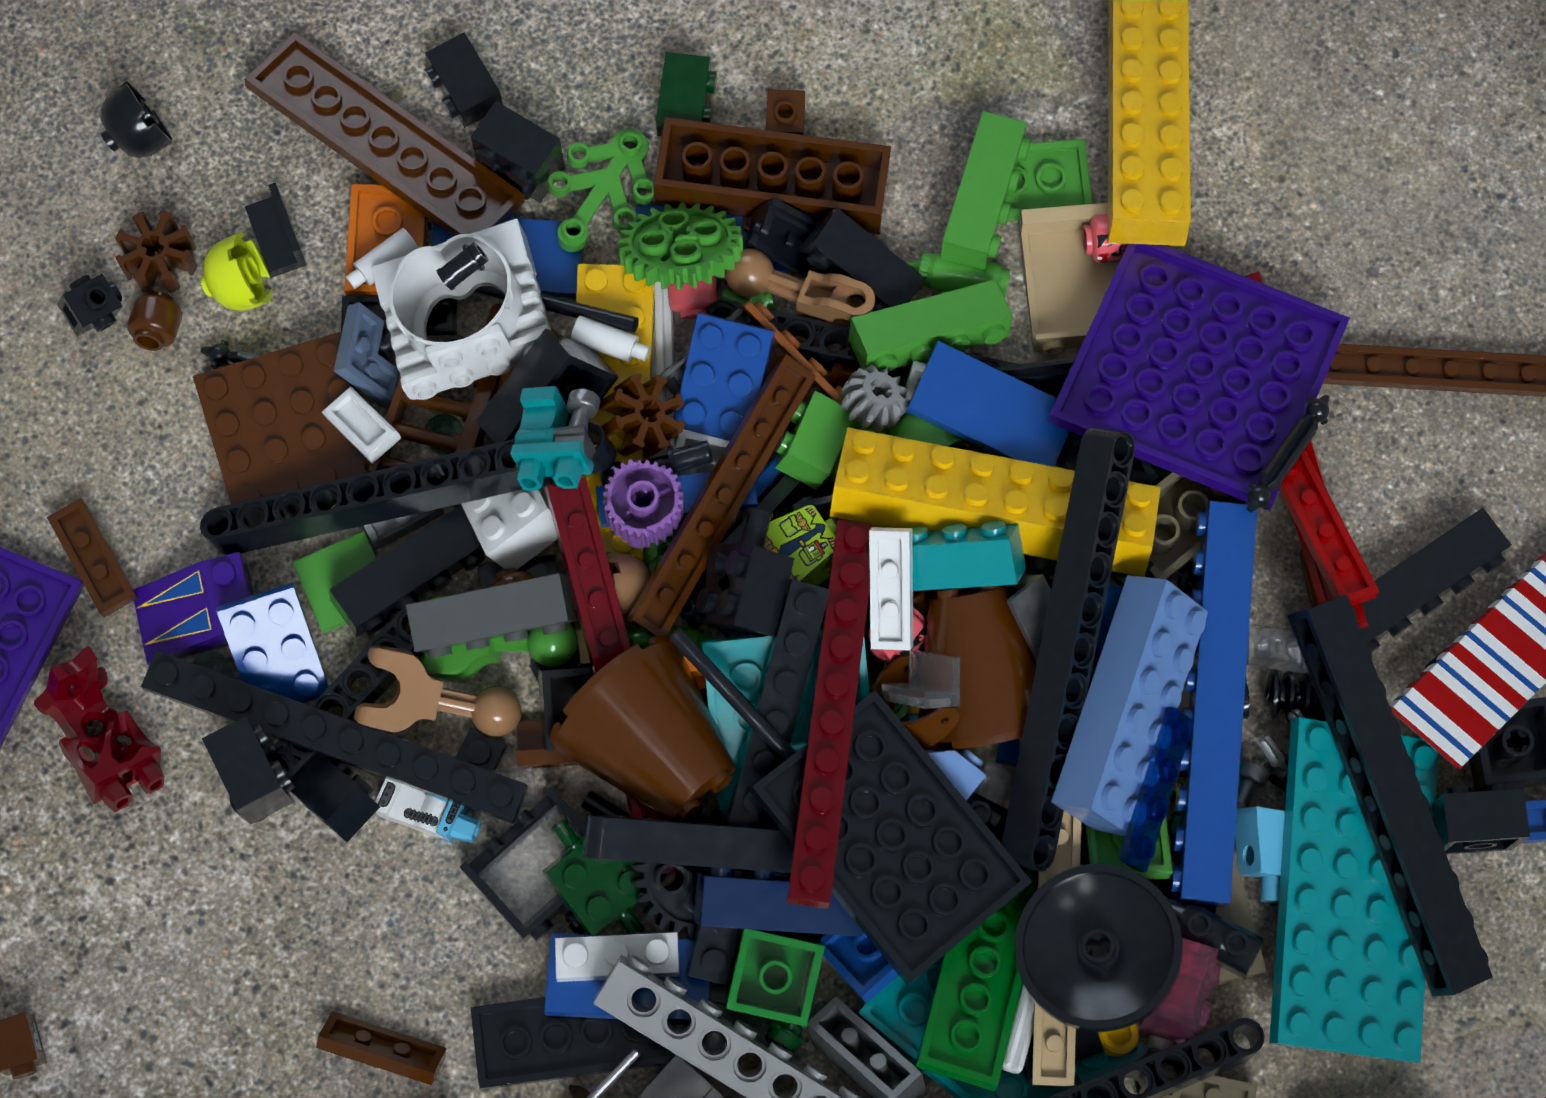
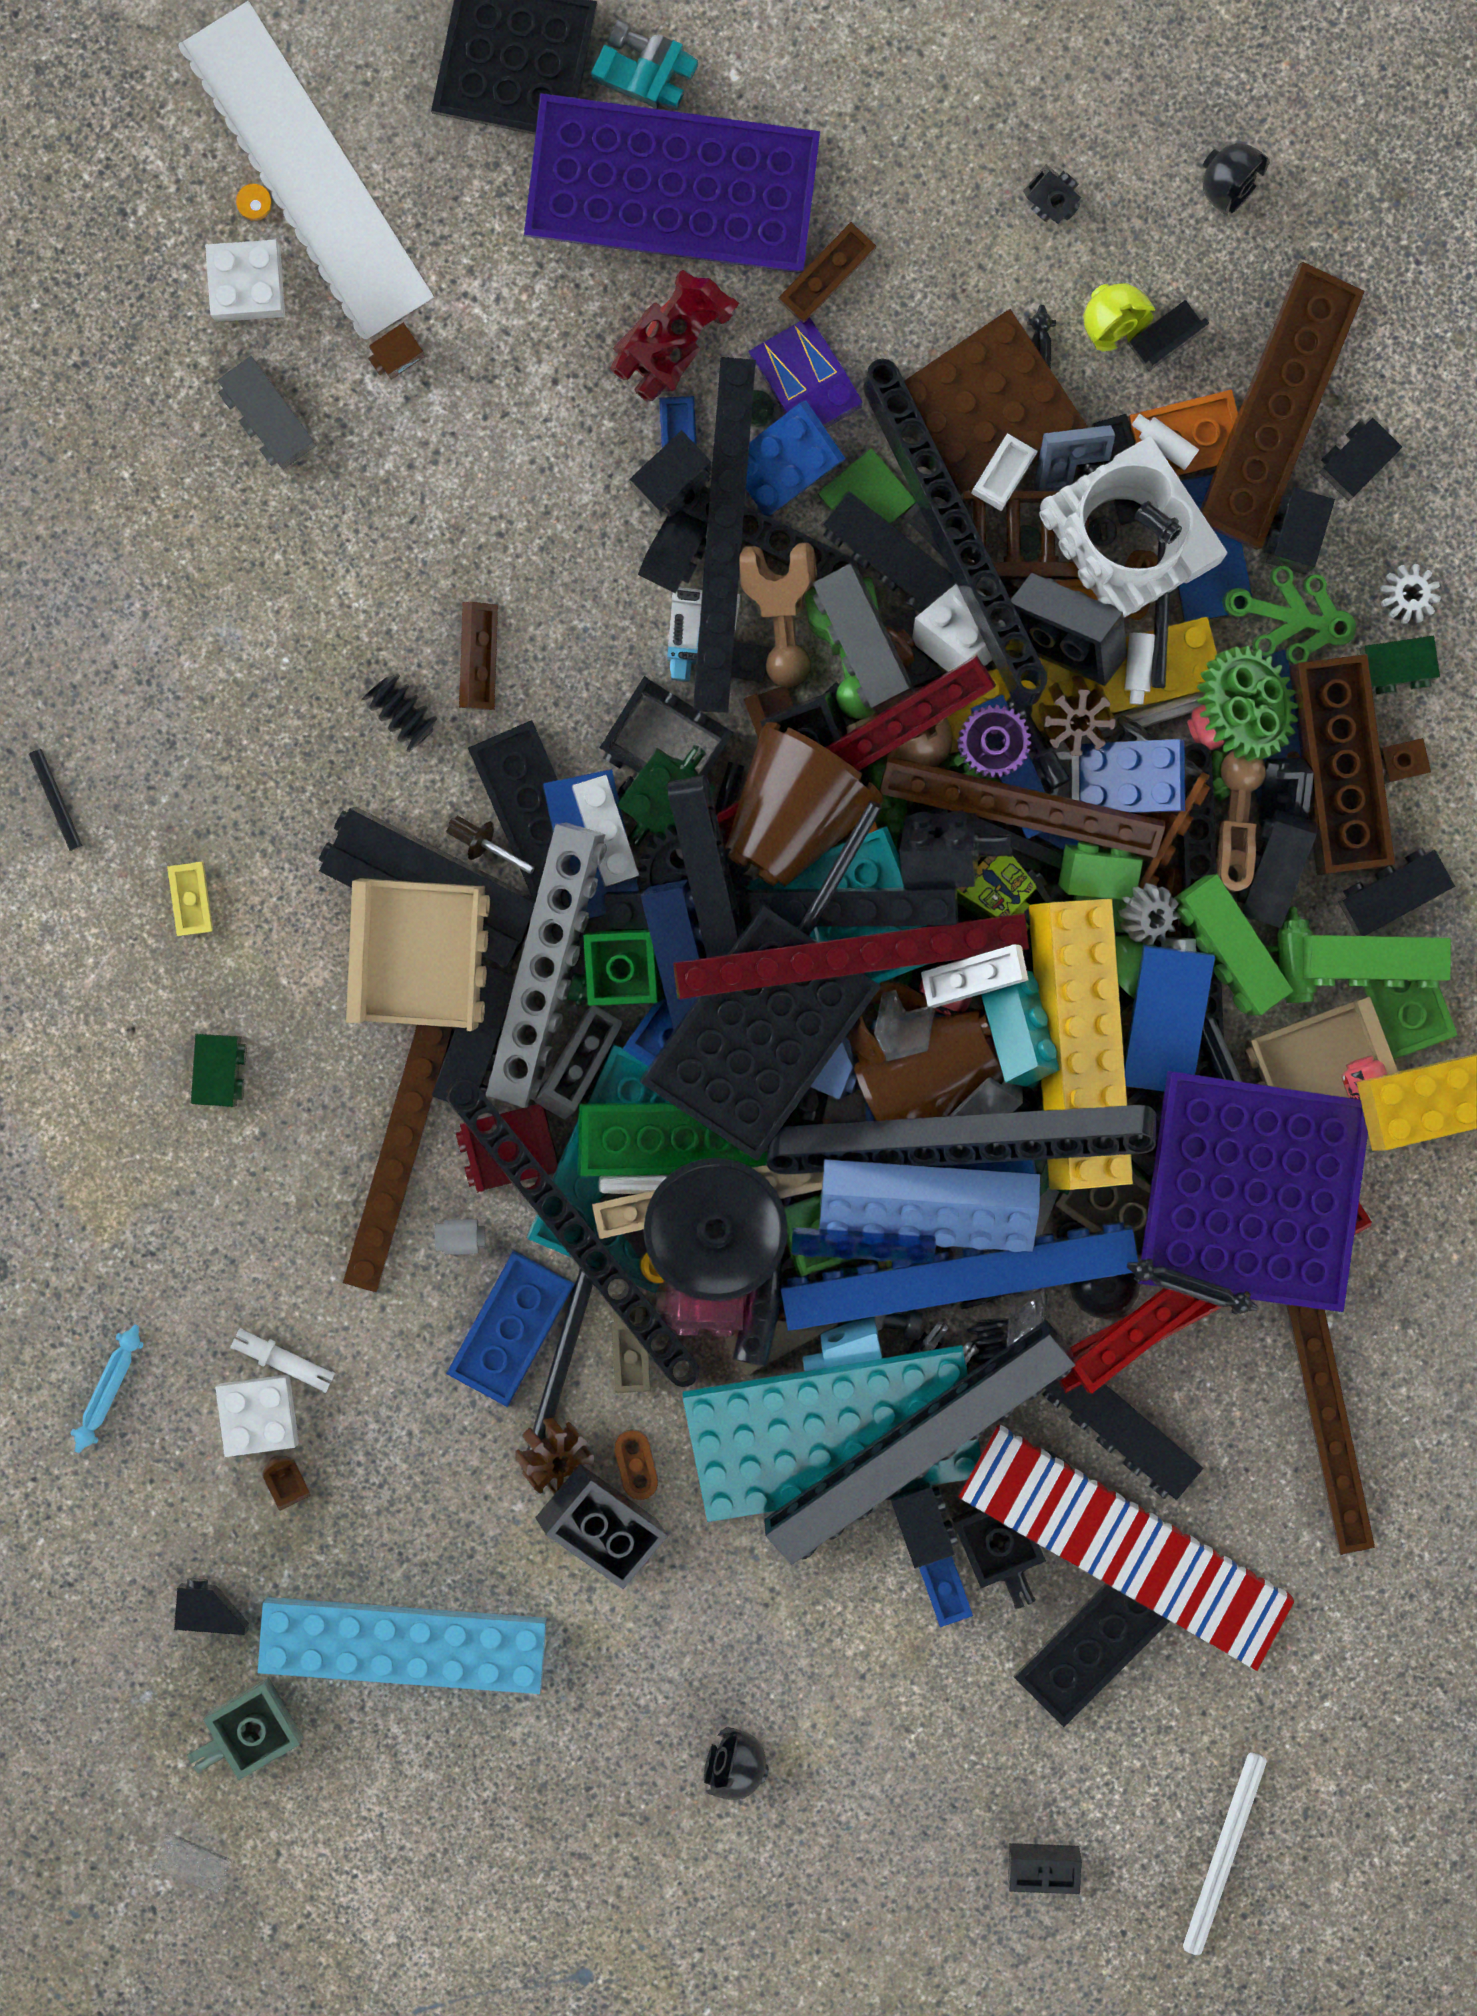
camera: 75 degrees right, 15 degrees up
(154, 321) = (1055, 255): reddish brown head -> none
(174, 253) = (1109, 227): reddish brown gear -> none
(191, 761) = (677, 415): none -> blue tile
(547, 445) = (1010, 650): teal hips -> none
(616, 55) = (1406, 581): none -> white gear
(918, 161) = (1395, 892): none -> black brick
(1273, 562) = (1106, 1296): none -> black cylinder

